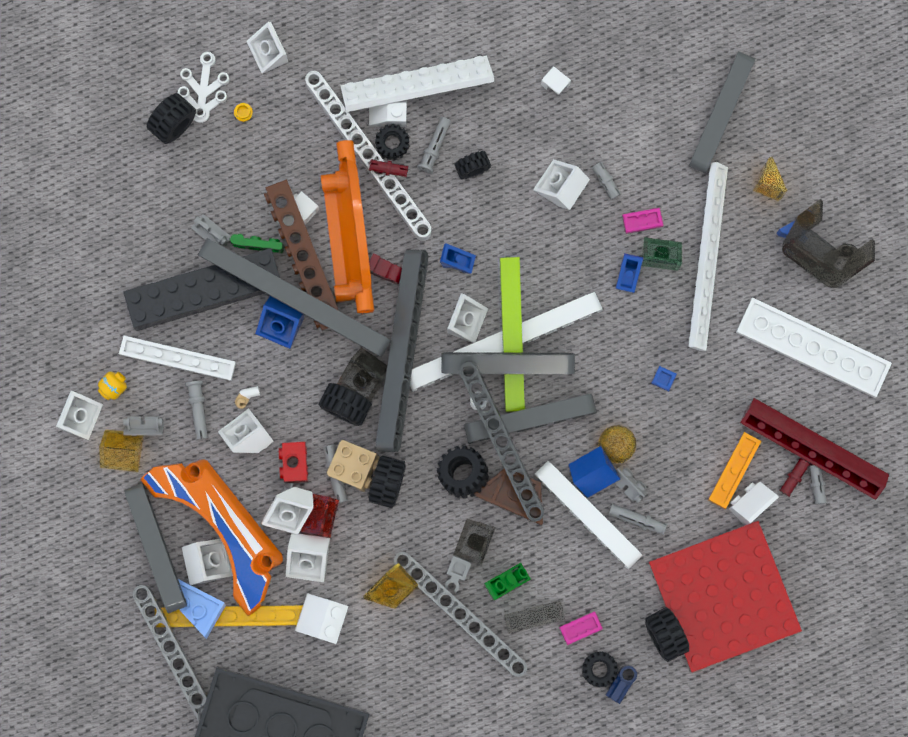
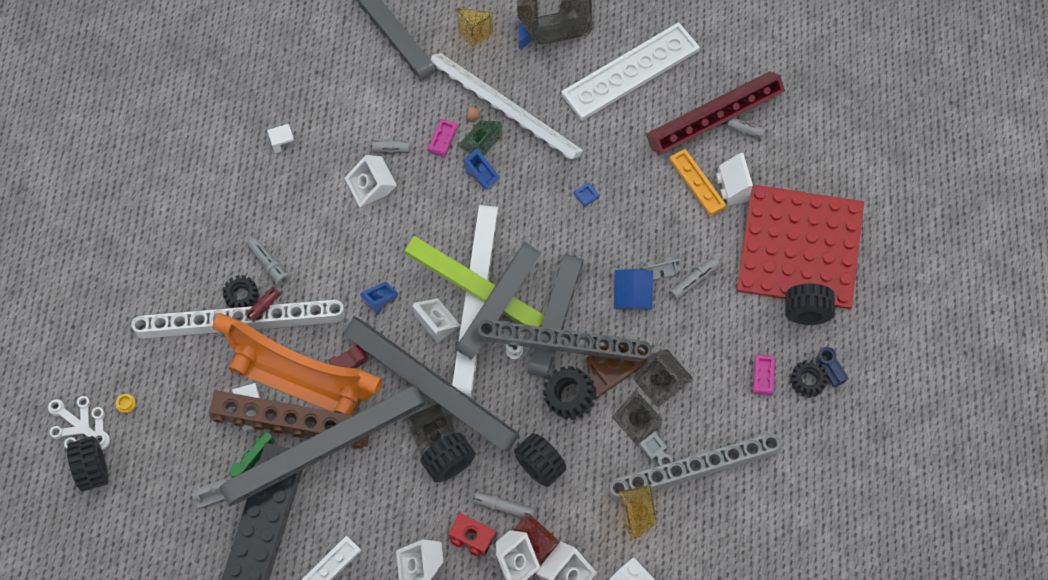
camera: 55 degrees left, 15 degrees down
(245, 395) = (382, 546): arm -> none
(267, 48) = (84, 348): white slope -> none
(279, 322) = (336, 476): blue slope -> none
(353, 465) = (506, 483): tan bracket -> none
(389, 114) = (209, 280): white slope -> none
(417, 83) = (204, 245): white plate -> none
(472, 165) = (306, 238): black tyre -> none
(507, 581) = (689, 412): green slope -> none
(526, 542) = (662, 377): none -> clear smoke slope
(534, 617) = (732, 408): clear smoke plate -> none
(588, 514) = (668, 313): white beam -> none
(618, 443) = (619, 256): clear yellow cylinder -> none
(682, 232) = (472, 114): none -> nougat hinge
(794, 477) = (729, 140): dark red pin -> none

